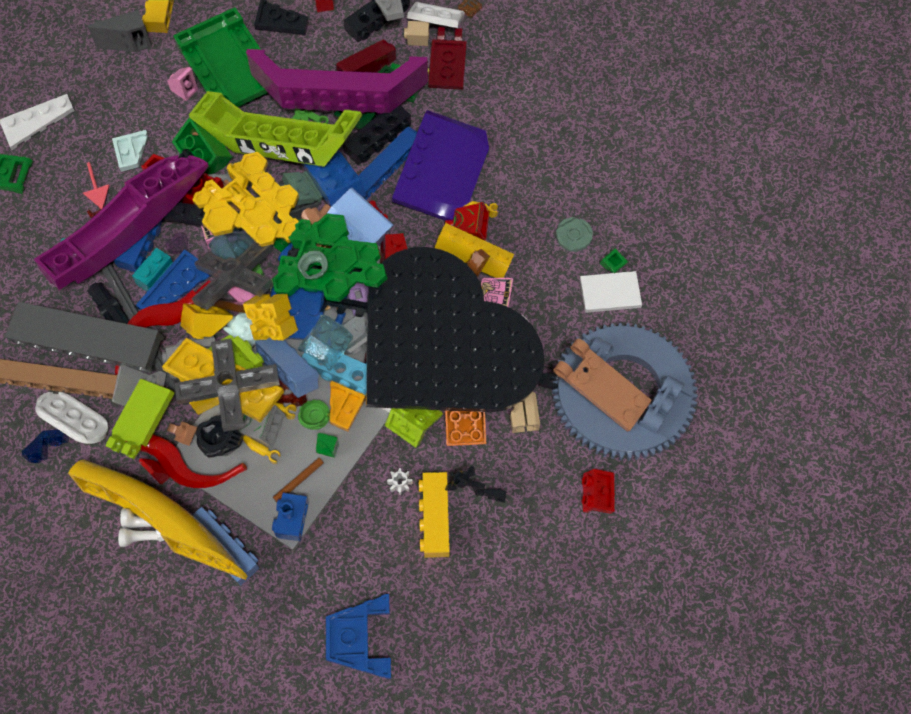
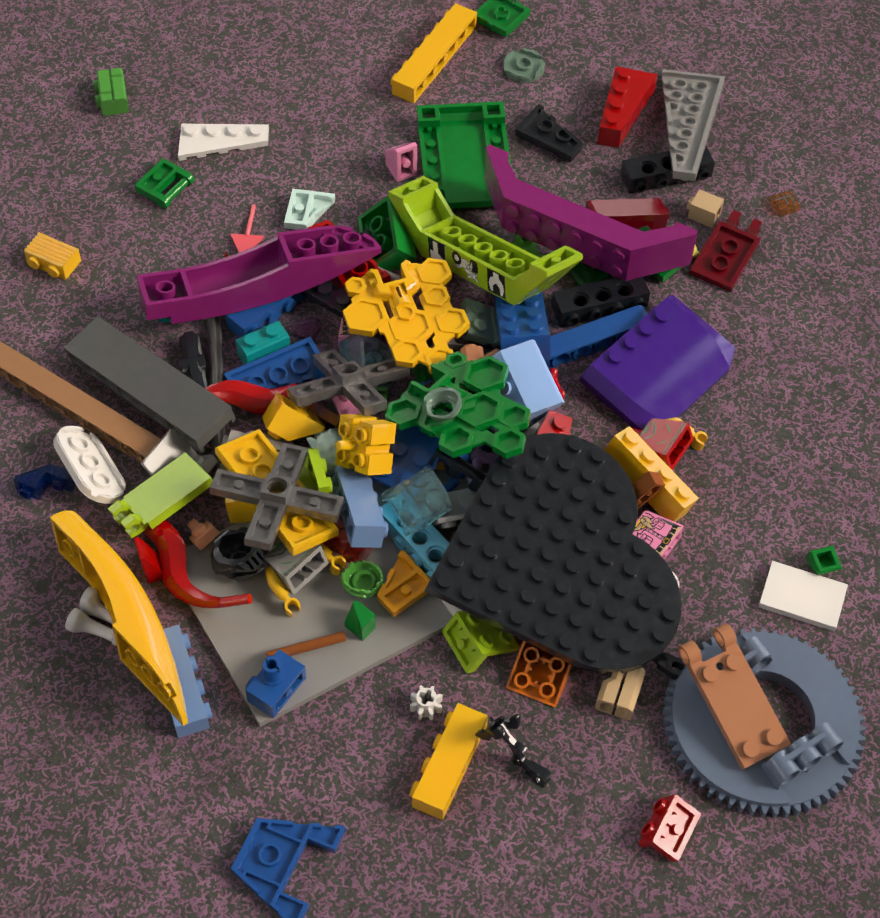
camera: 25 degrees right, 10 degrees down
(121, 33) = (360, 82): dark grey slope -> none
(436, 14) = (738, 195): white tile -> none
(570, 238) = (786, 516): sand green tile -> none

